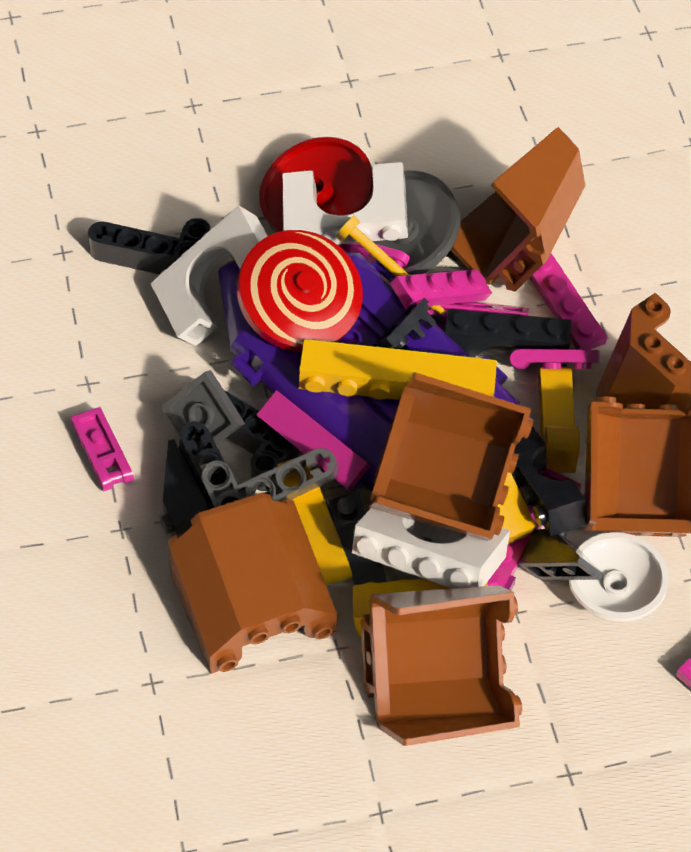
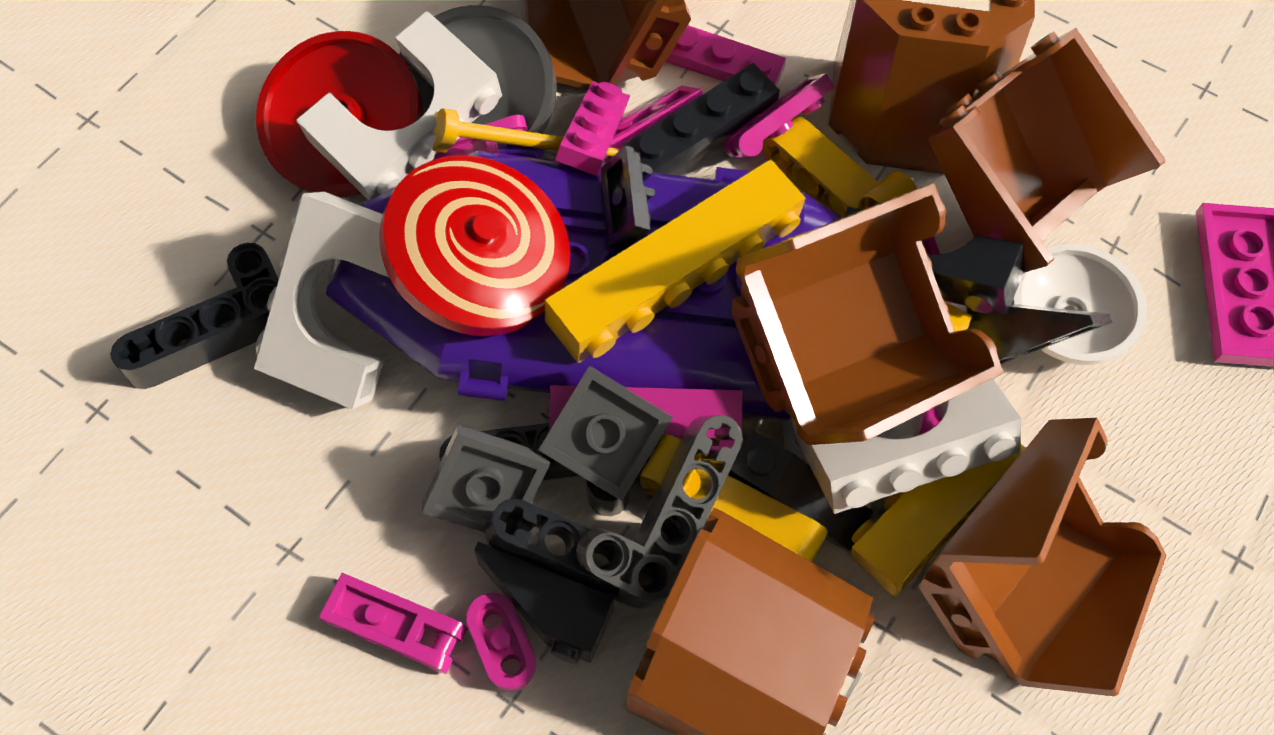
camera: 45 degrees left, 10 degrees up
(140, 498) = (501, 643): none -> dark pink plate
(279, 430) = (605, 433): none -> dark grey plate

